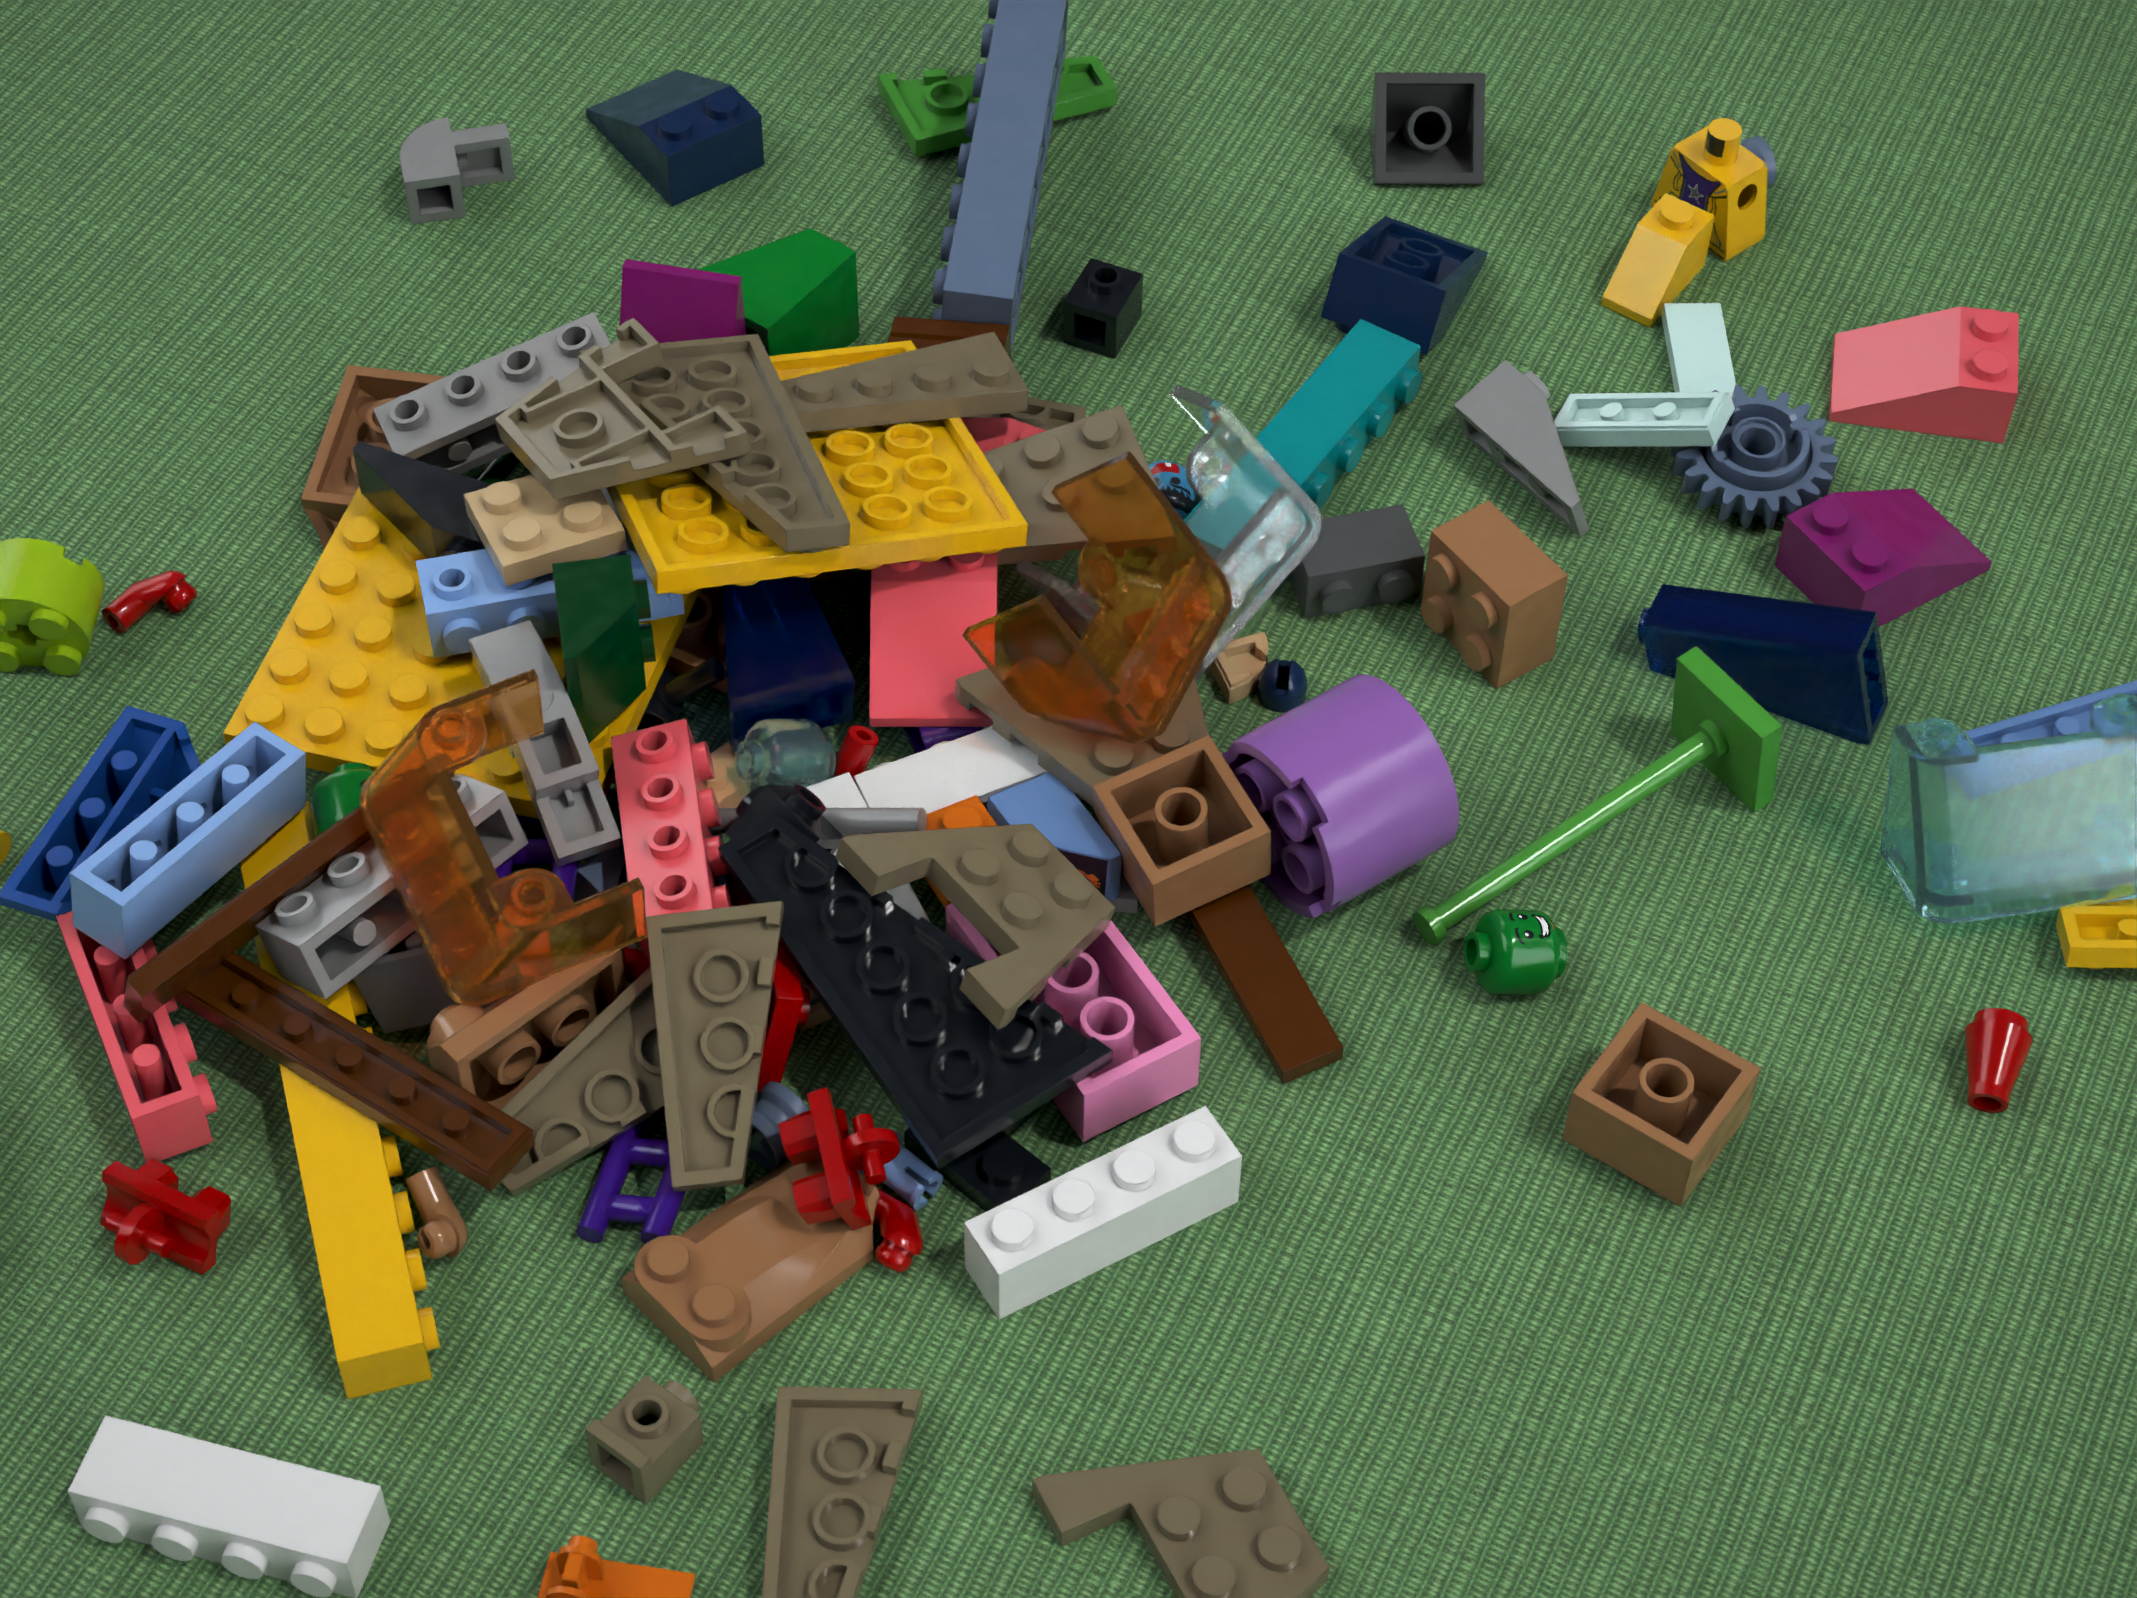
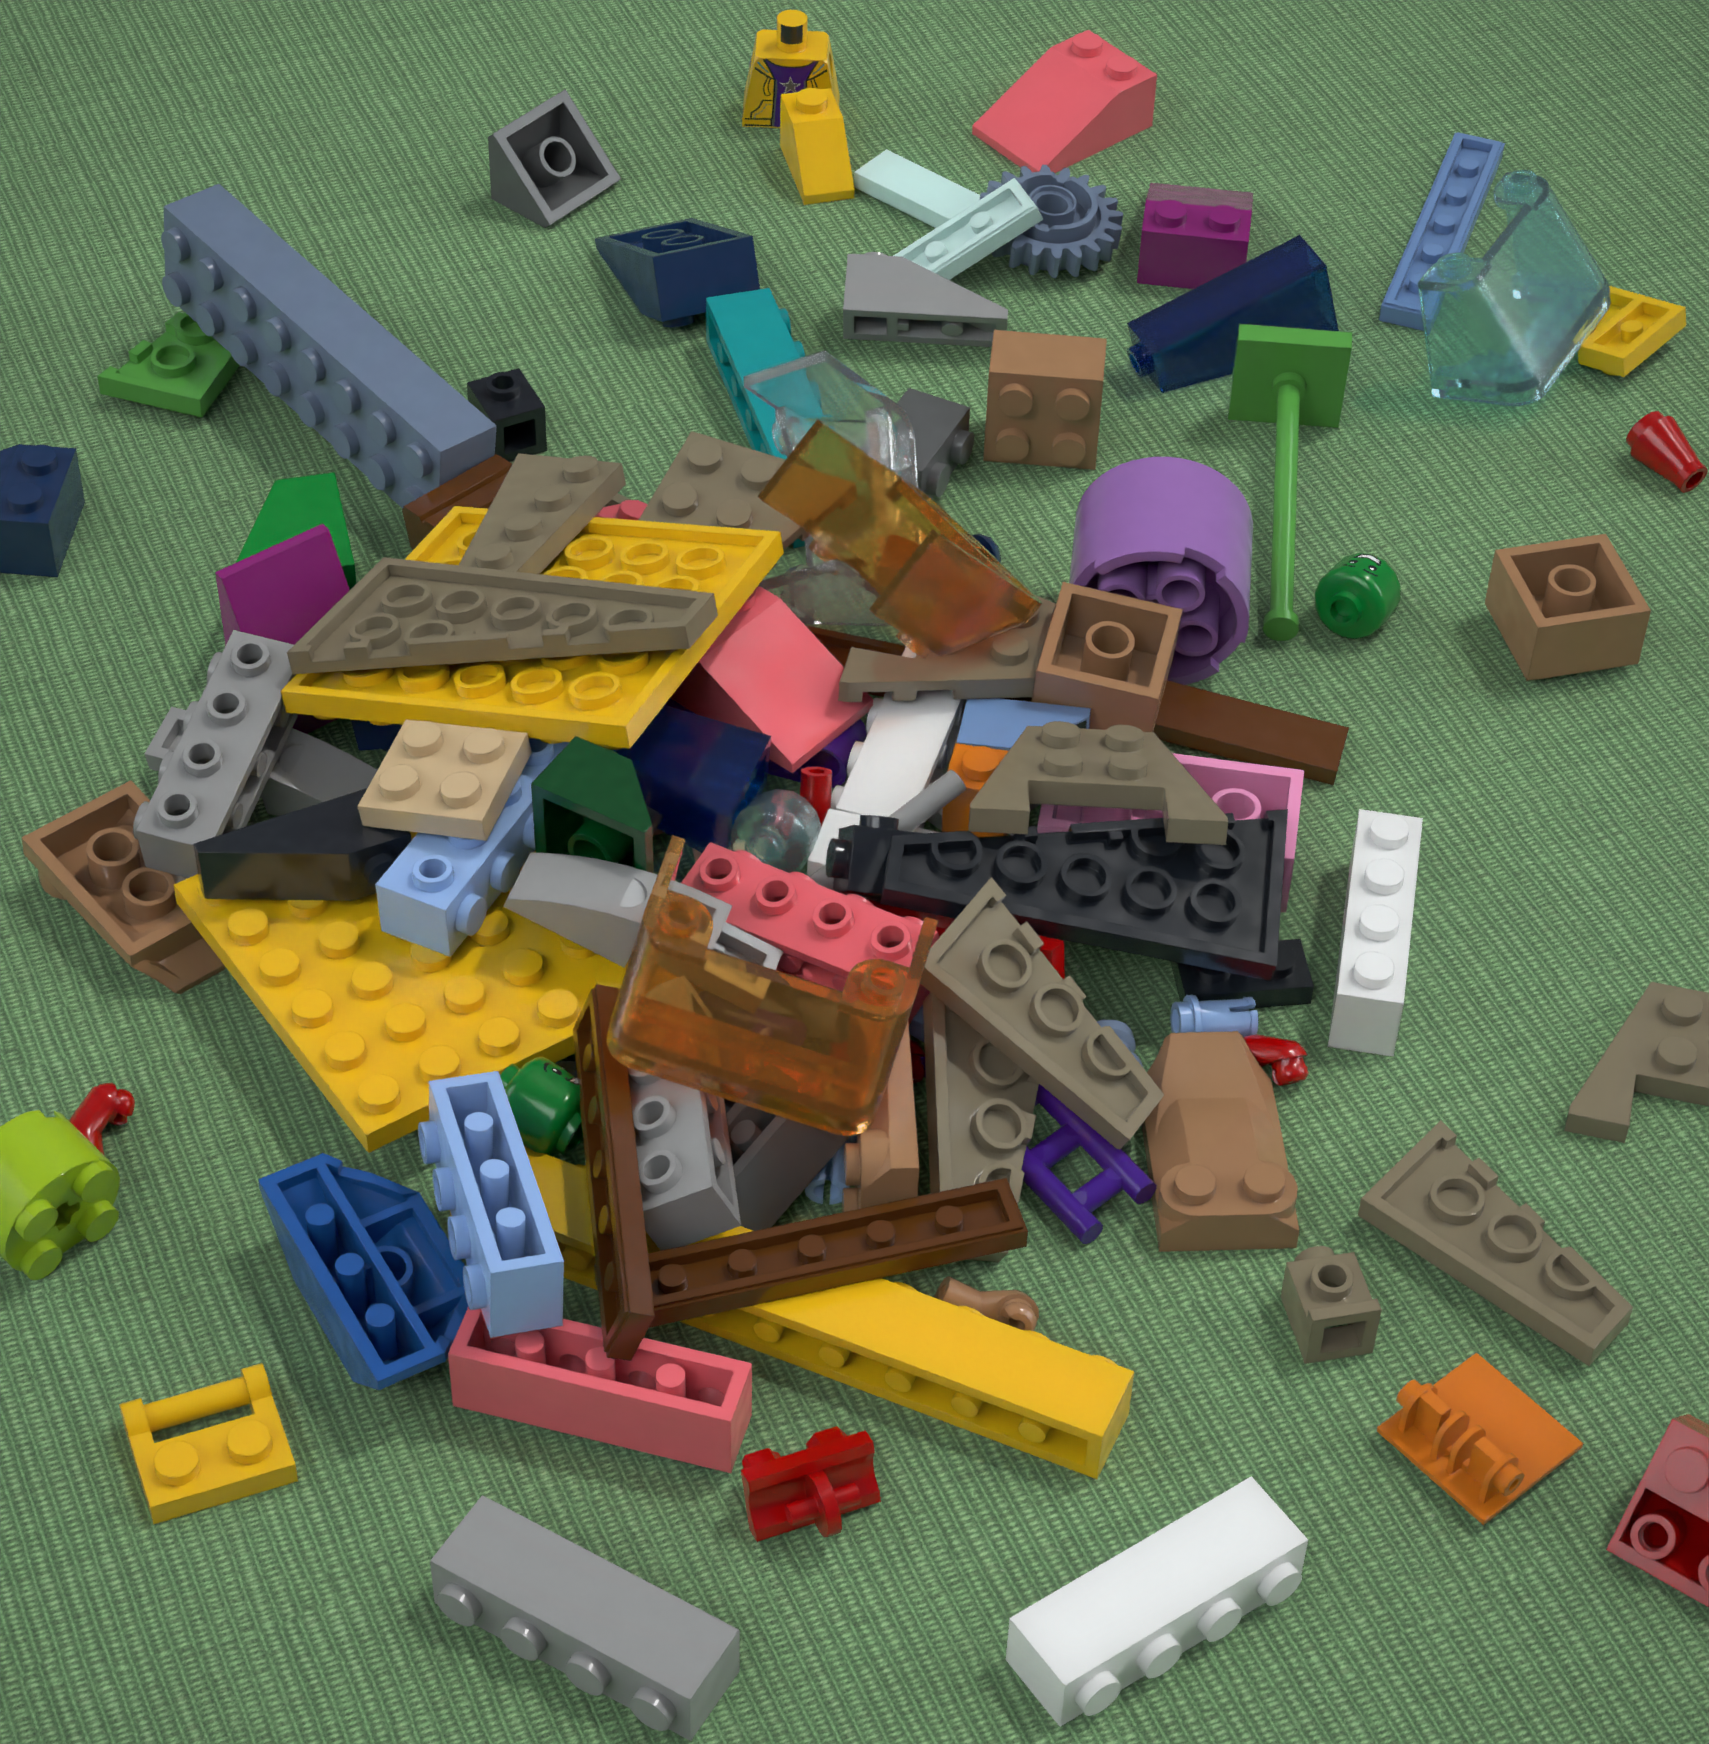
camera: 50 degrees left, 5 degrees down
(595, 437) = (420, 685): dark tan wing -> none
(827, 1135) = (1214, 1019): red hips -> none

